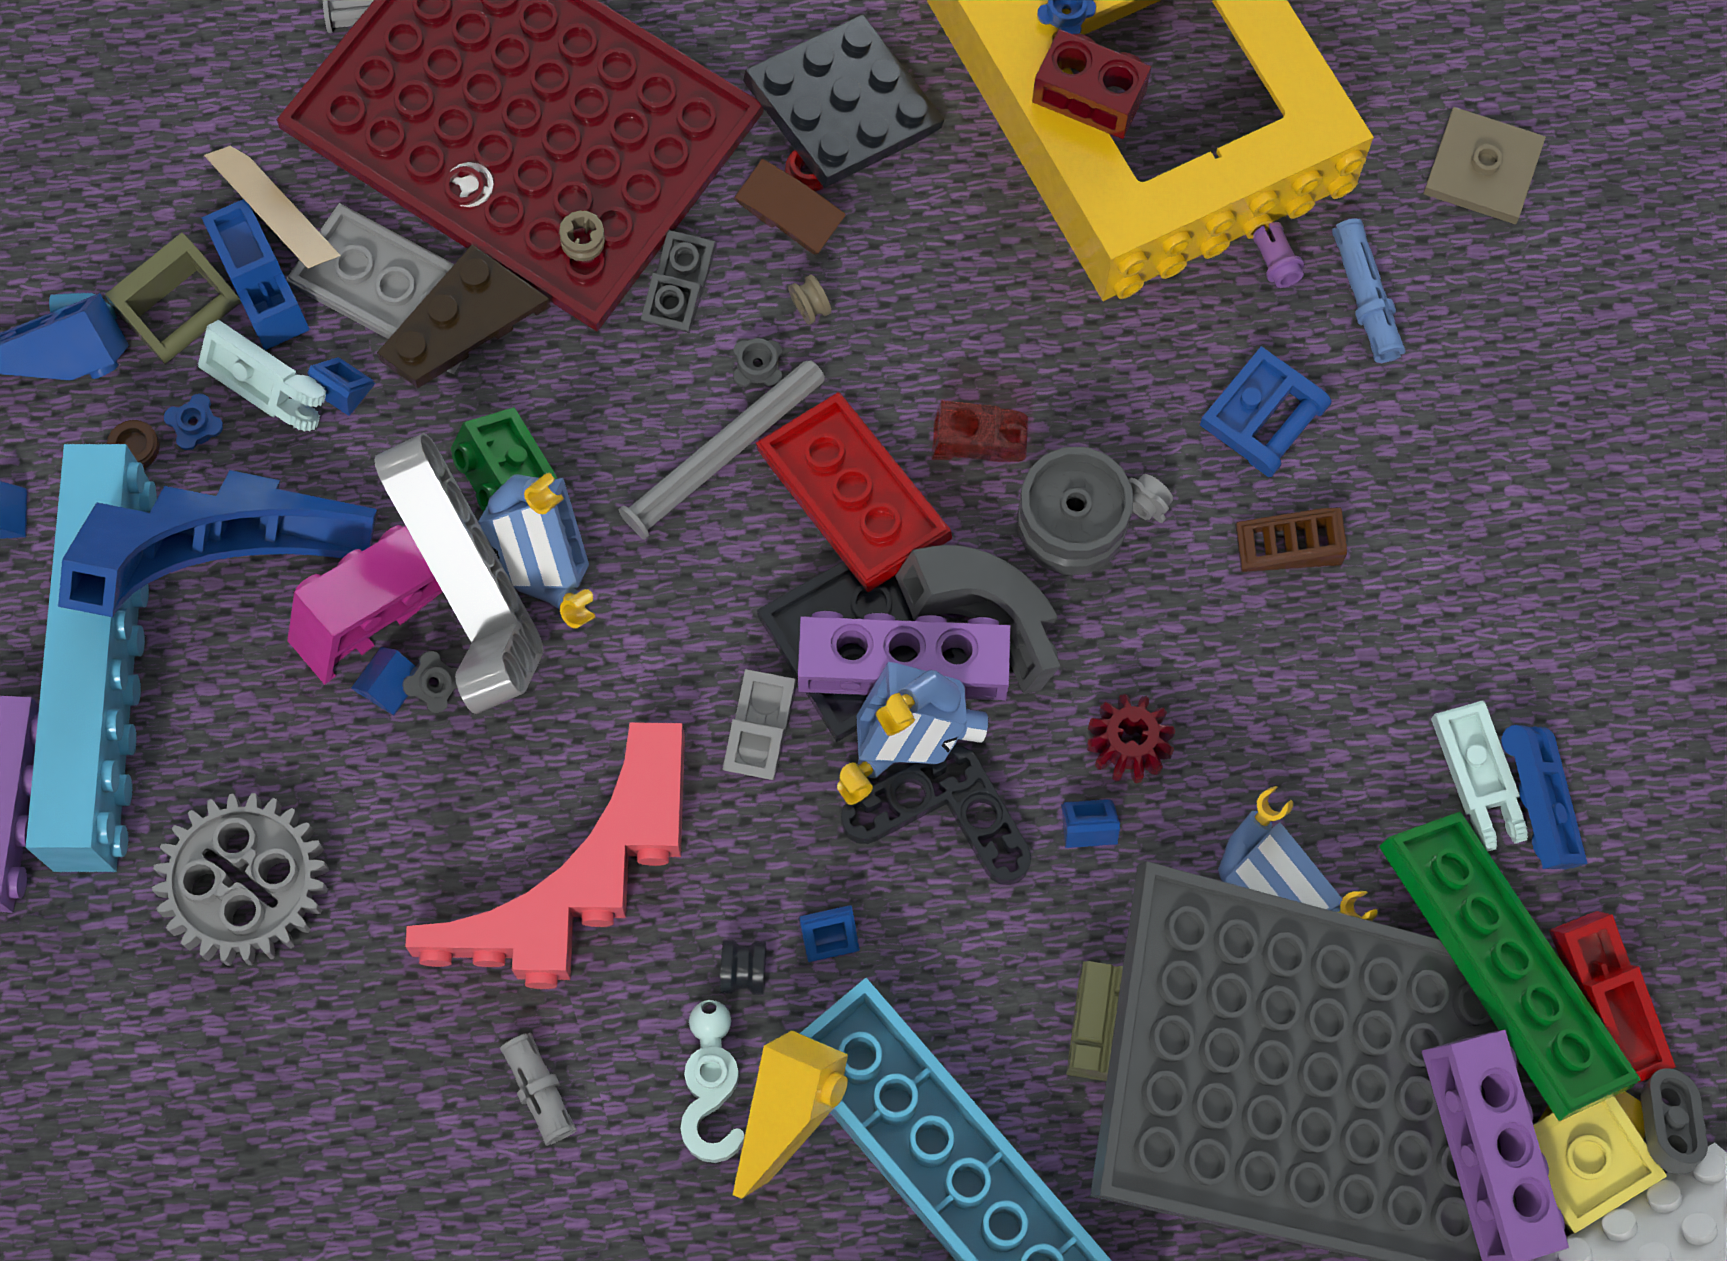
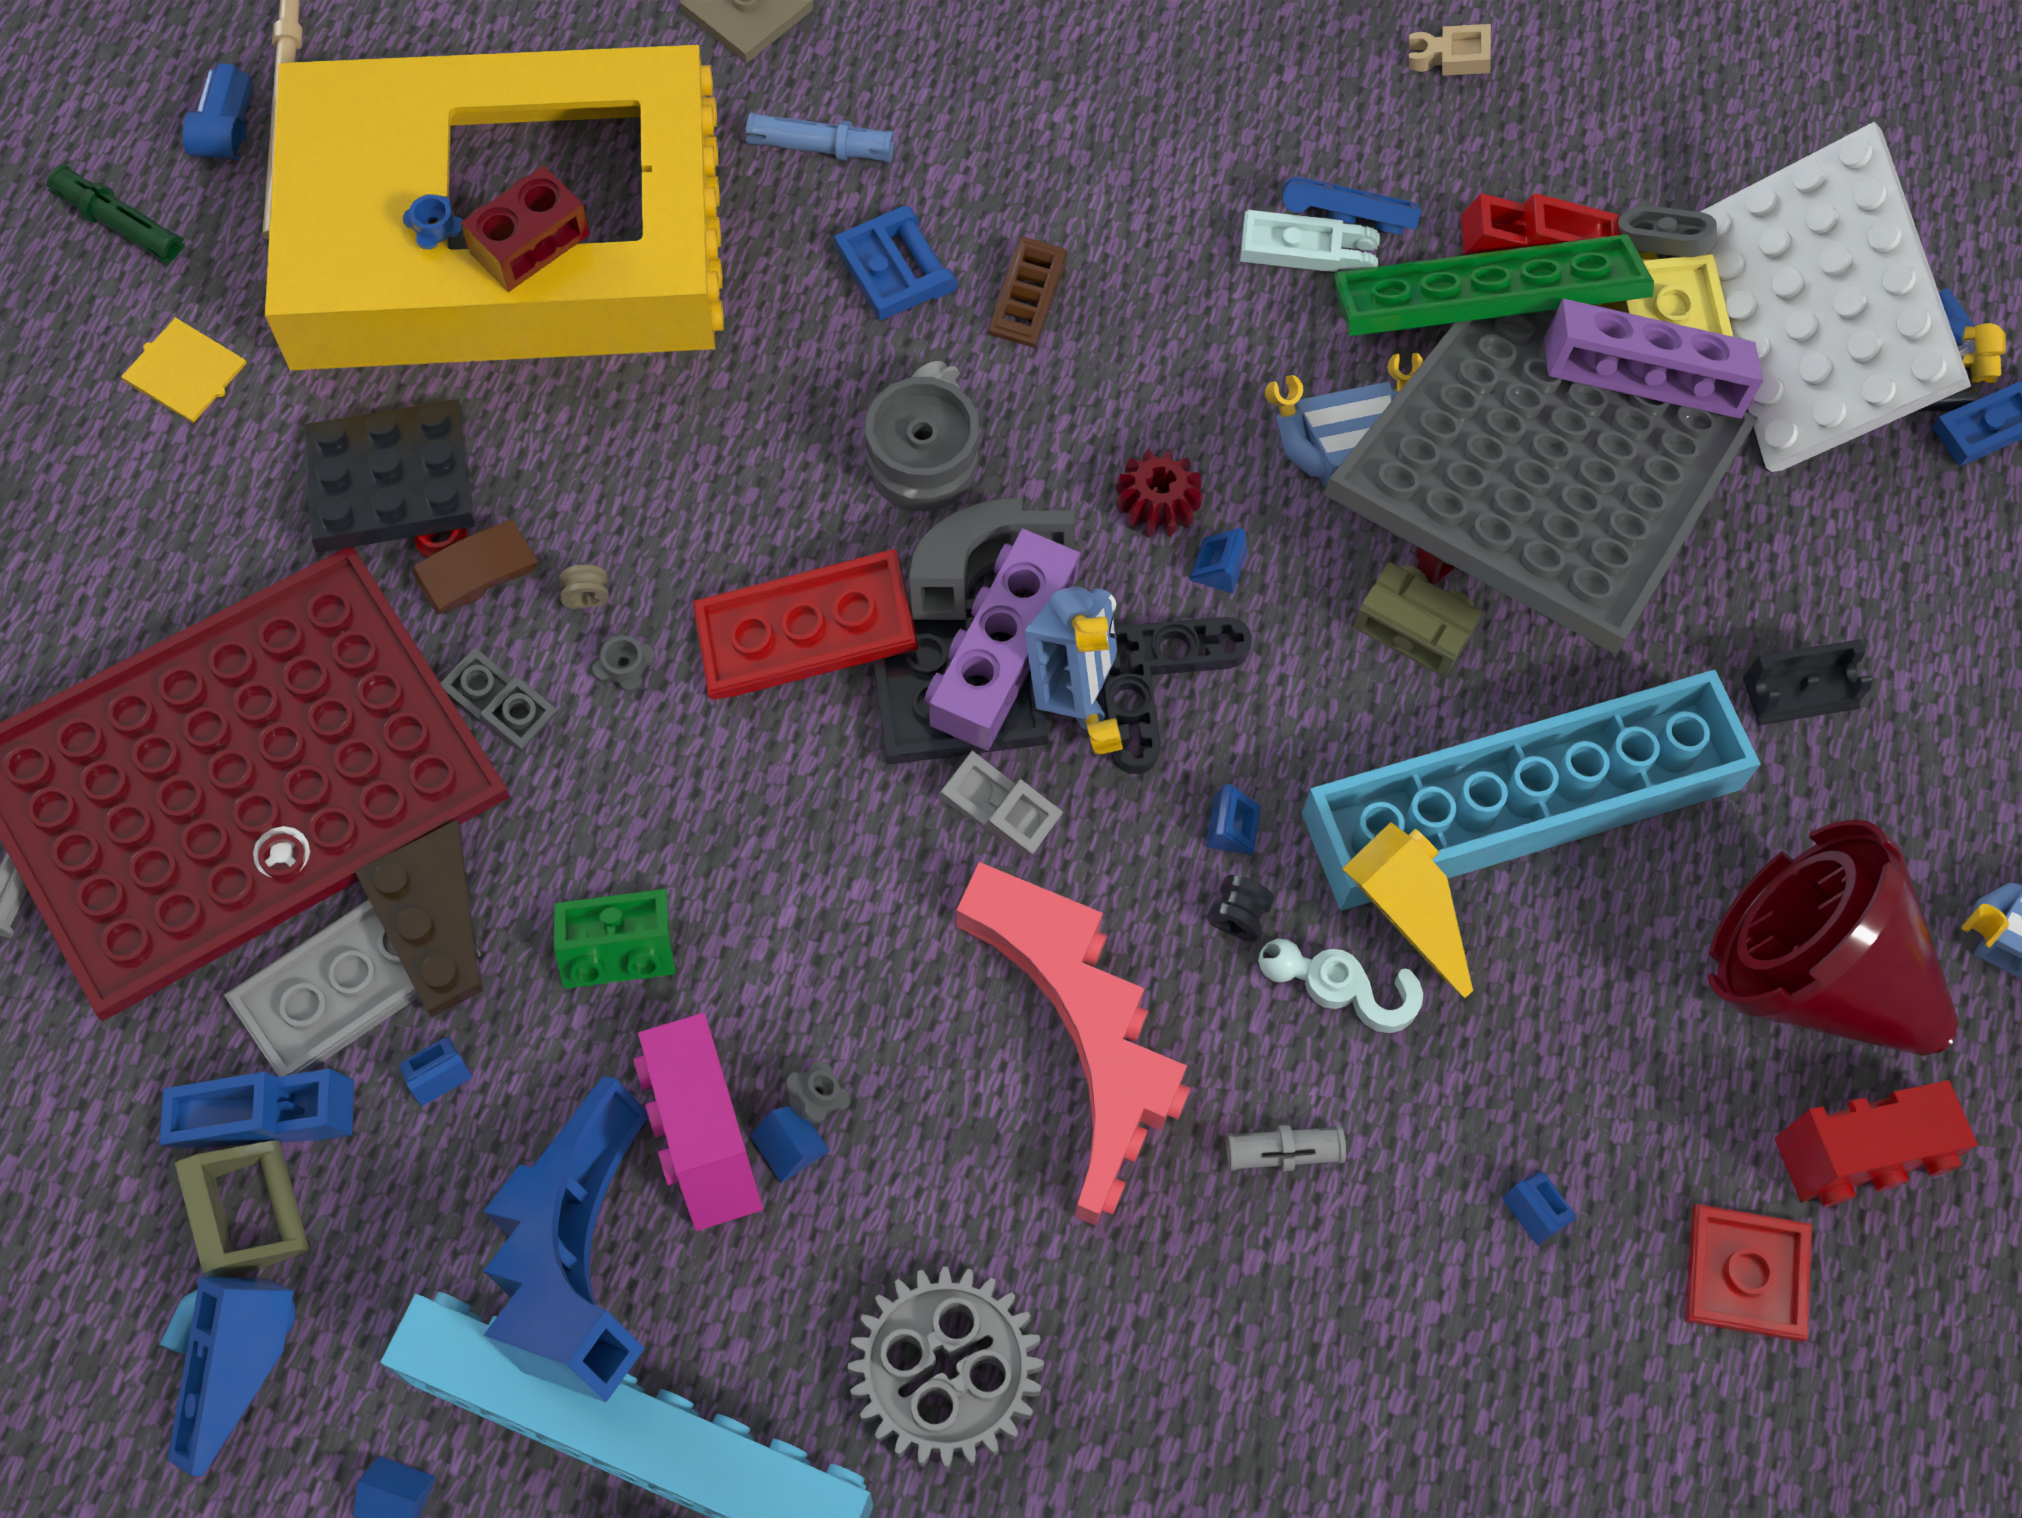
camera: 70 degrees left, 5 degrees down
(139, 438) = (382, 1313): reddish brown tile -> none
(191, 435) = (409, 1251): blue plate -> none
(260, 377) = (385, 1146): light aqua hinge -> none
(272, 206) = (188, 1064): tan sticker -> none
(501, 632) = (738, 997): light grey beam -> none
(540, 543) = (725, 929): torso -> none
(584, 220) = (403, 743): dark tan bush -> none
(722, 448) = (699, 730): light grey axle -> none
(979, 432) = (798, 499): clear red leg -> none
(1282, 264) = (749, 190): medium lavender pin -> none

